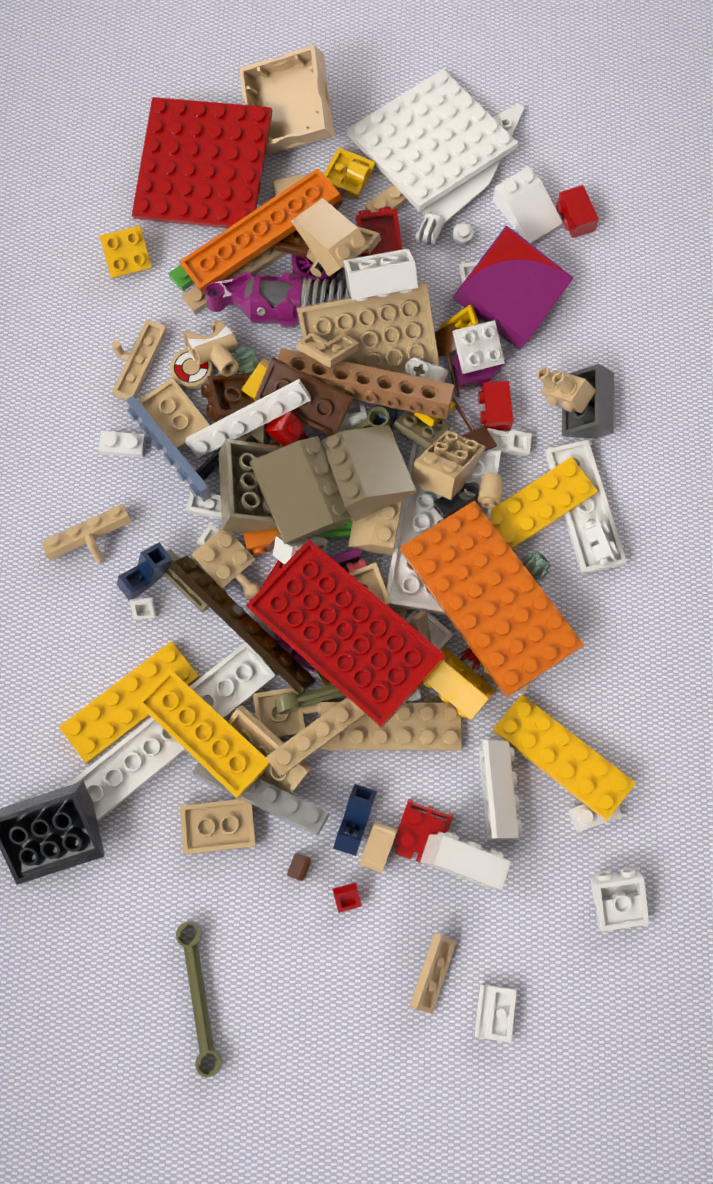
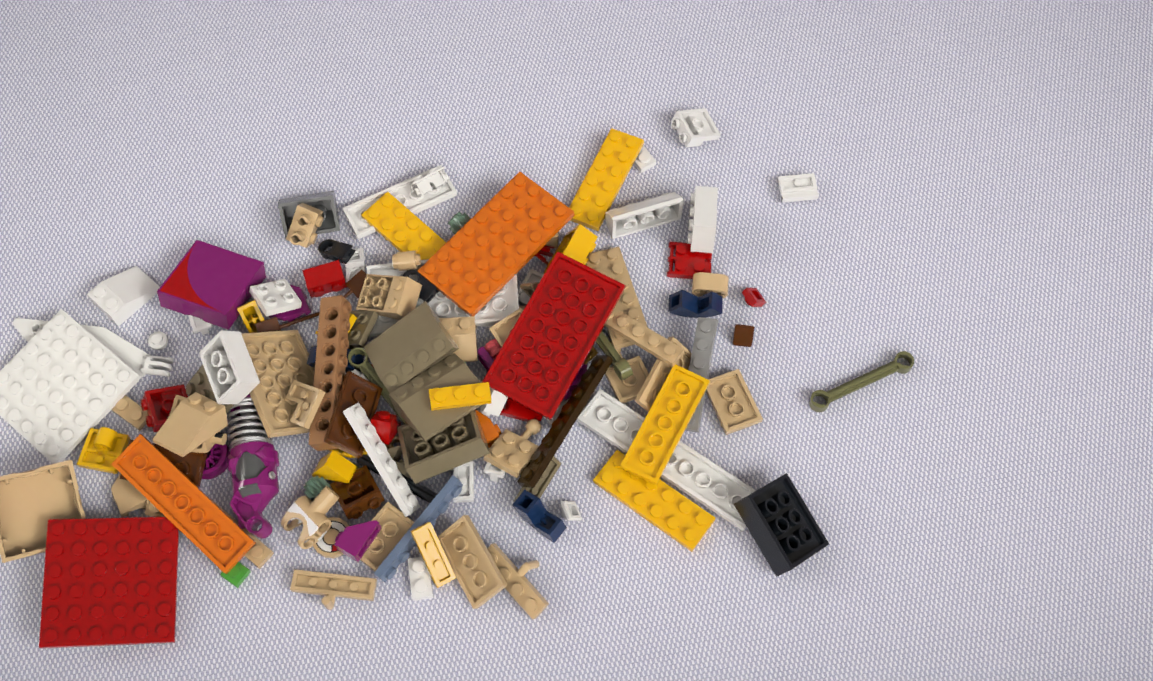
camera: 105 degrees left, 10 degrees down
(117, 492) = (471, 562): none -> tan plate
(125, 252) = (218, 632): yellow plate -> none
(134, 454) = (433, 554): none -> yellow plate
(171, 383) = (357, 539): none -> magenta slope
(290, 507) = (460, 396): none -> yellow plate
(427, 370) = (304, 335): white piece -> none
(433, 973) = (786, 230): tan plate -> none
(527, 425) = (339, 250): none -> black piece
(577, 211) = (125, 254): red brick -> none

